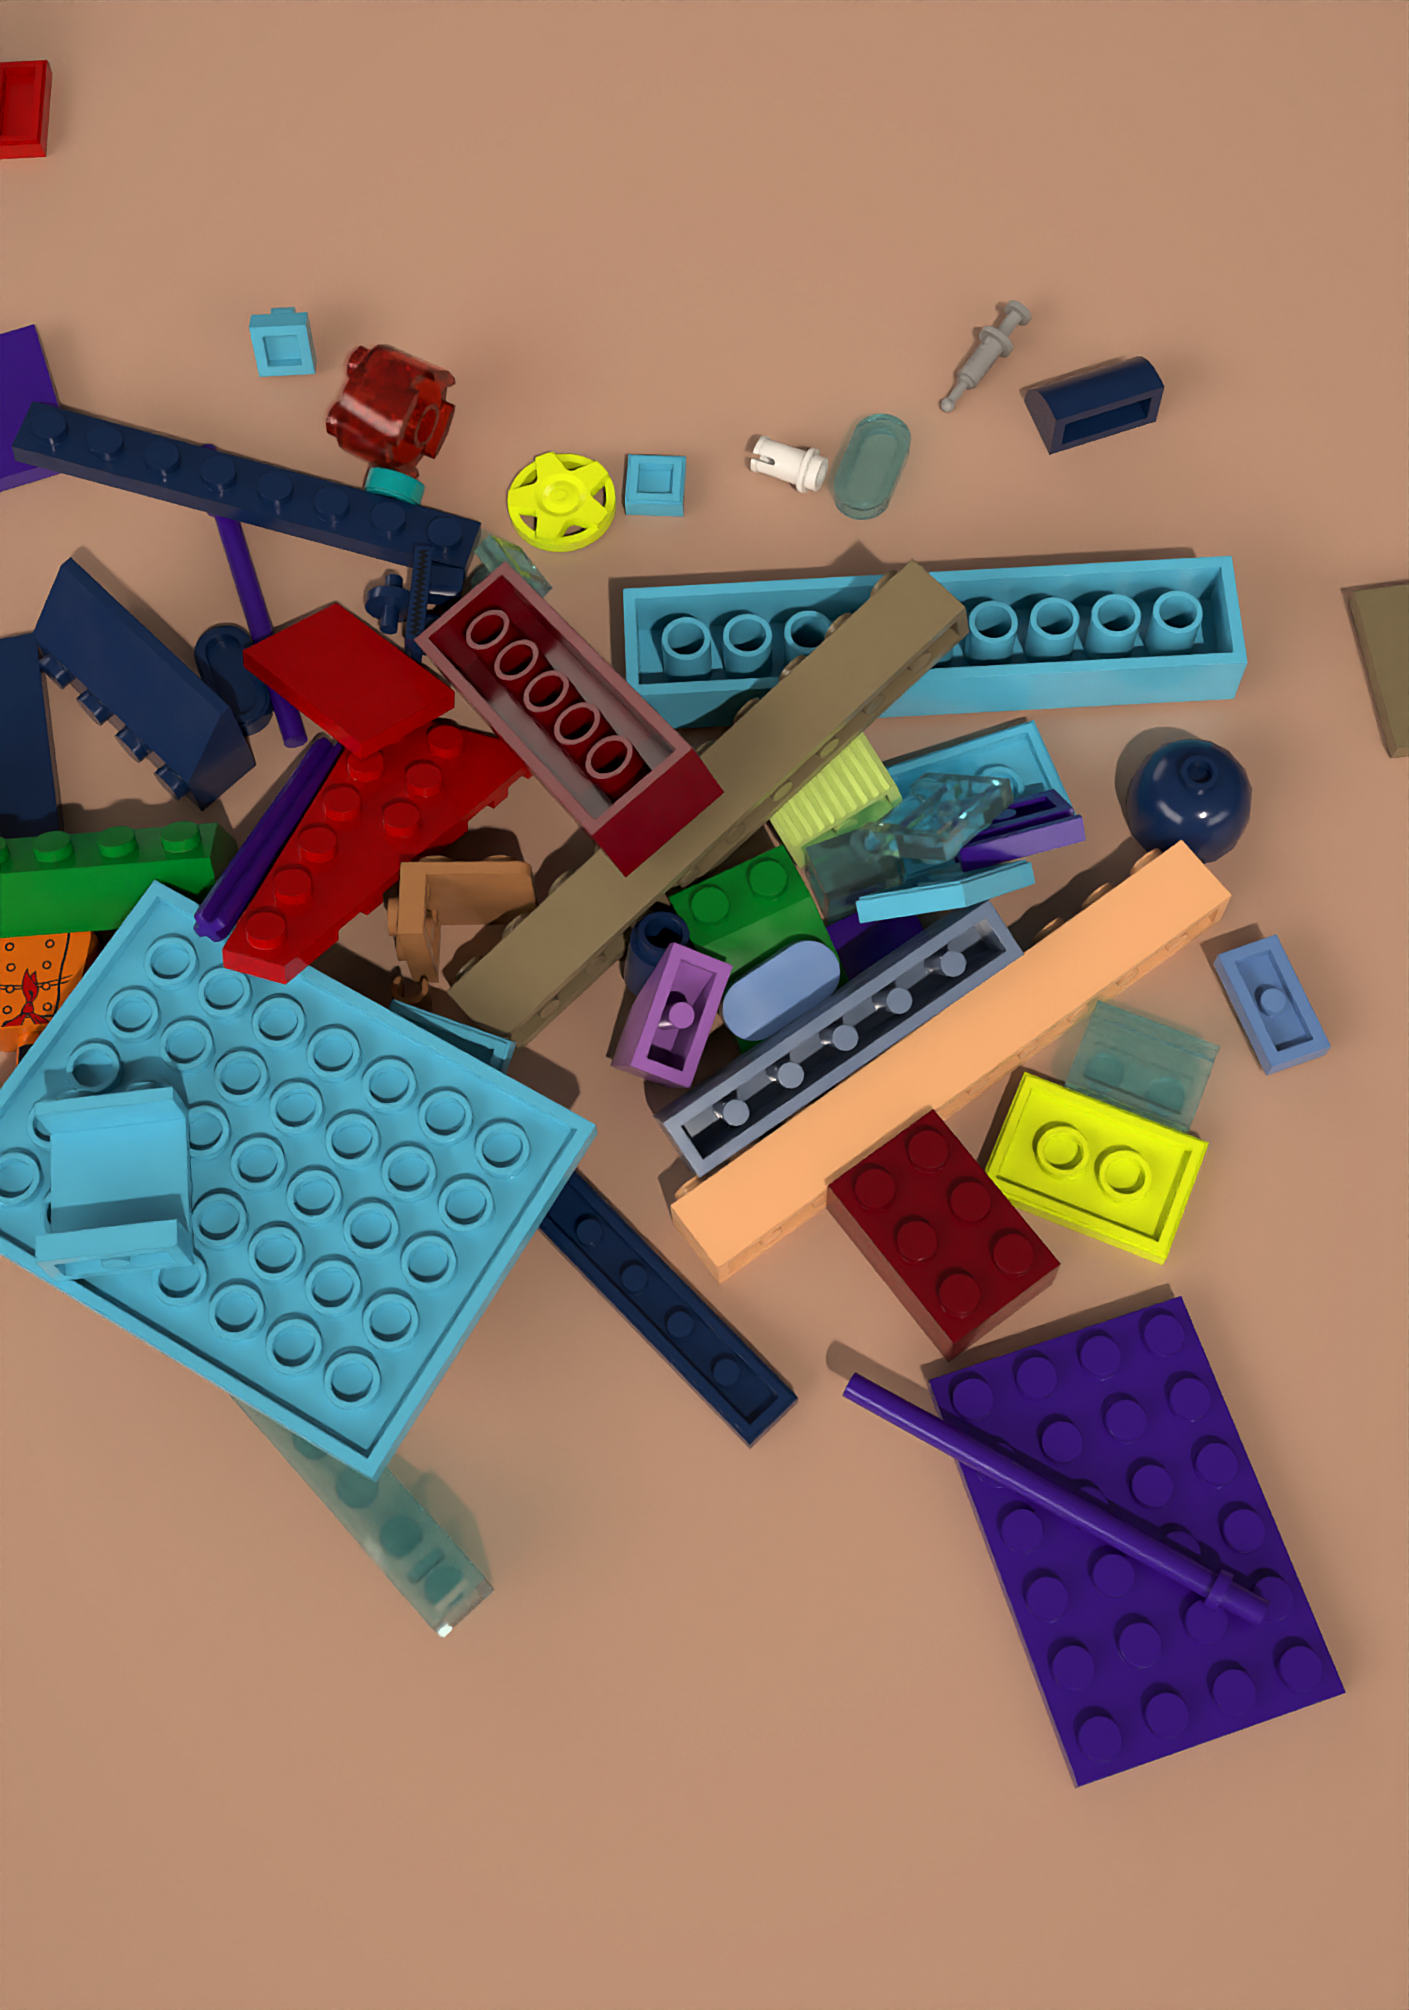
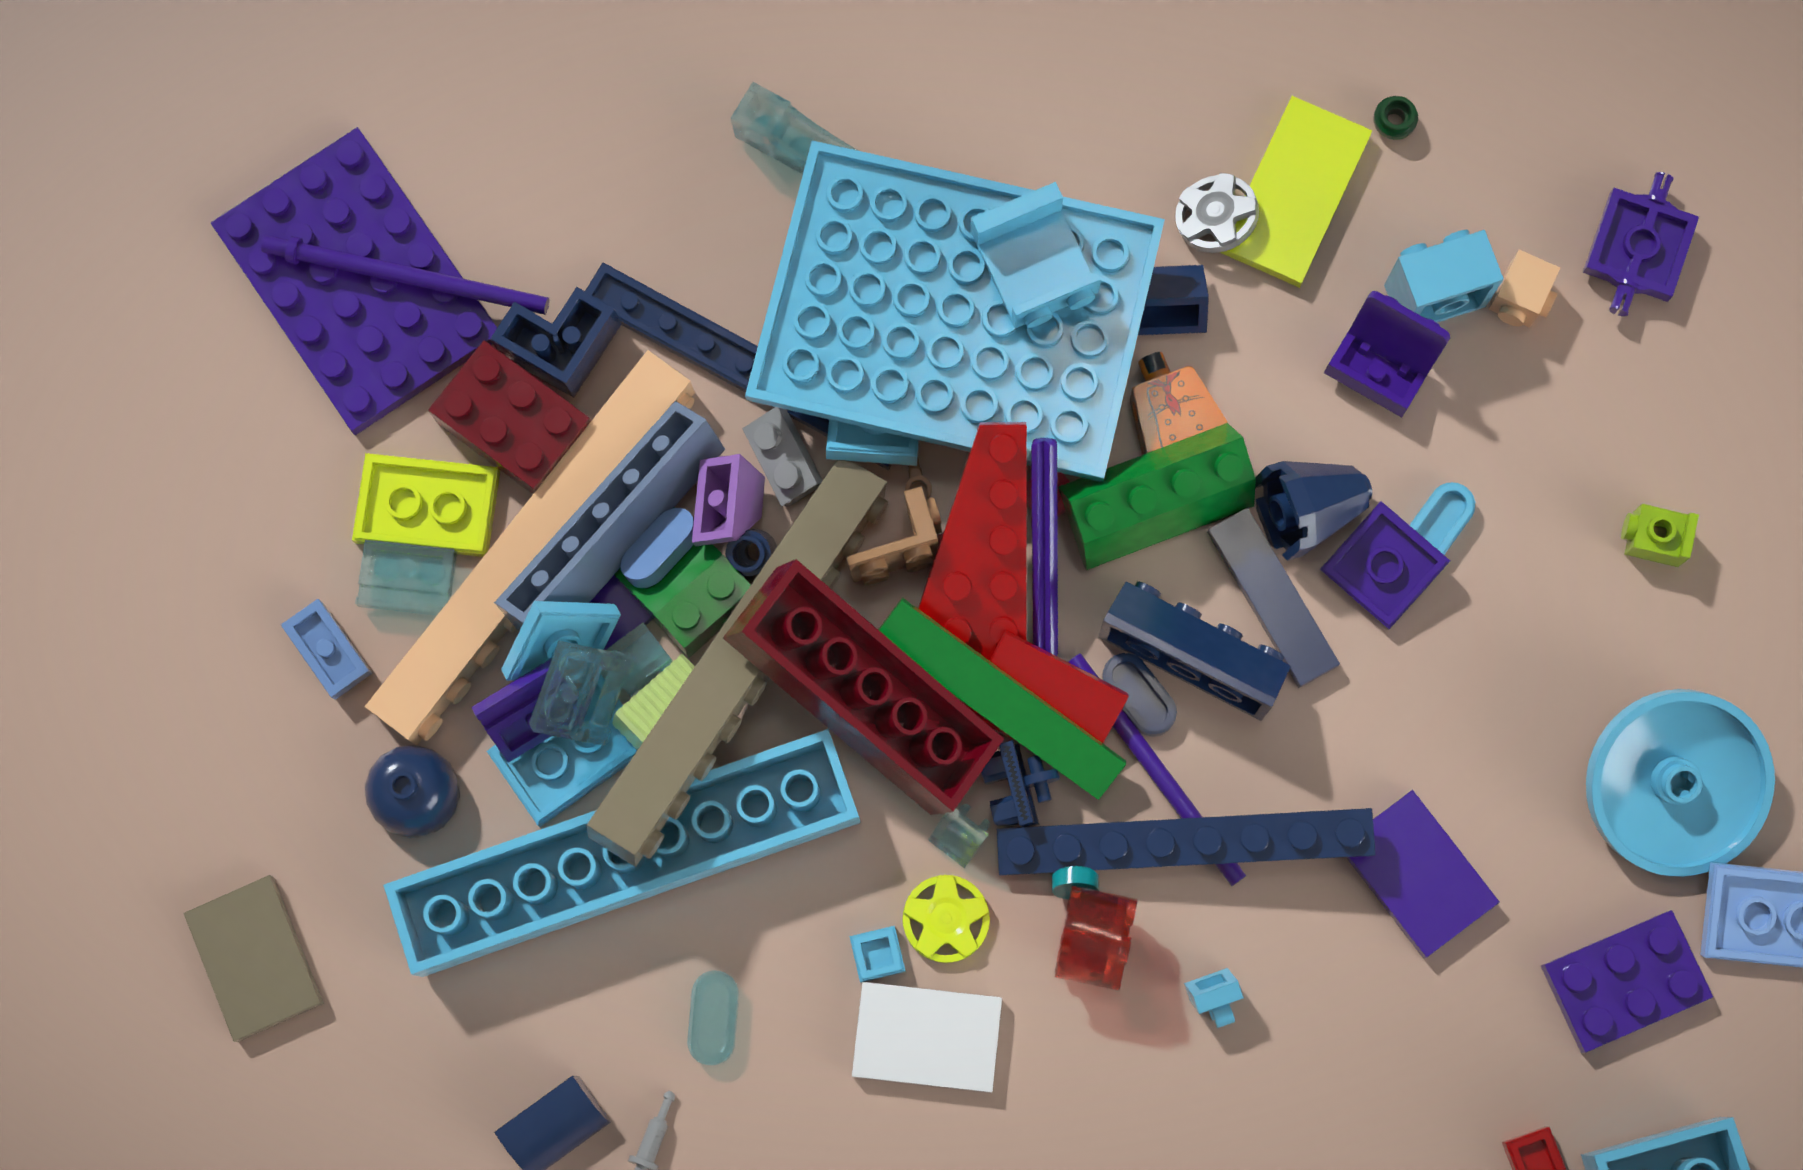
camera: 165 degrees right, 10 degrees up
(404, 686) = (1003, 700): none -> green tile
(578, 1076) = (783, 456): none -> light grey plate
(627, 388) = (927, 1037): none -> white tile
(790, 464) = (776, 997): white pin -> none
(848, 1308) = (562, 350): none -> dark blue brick

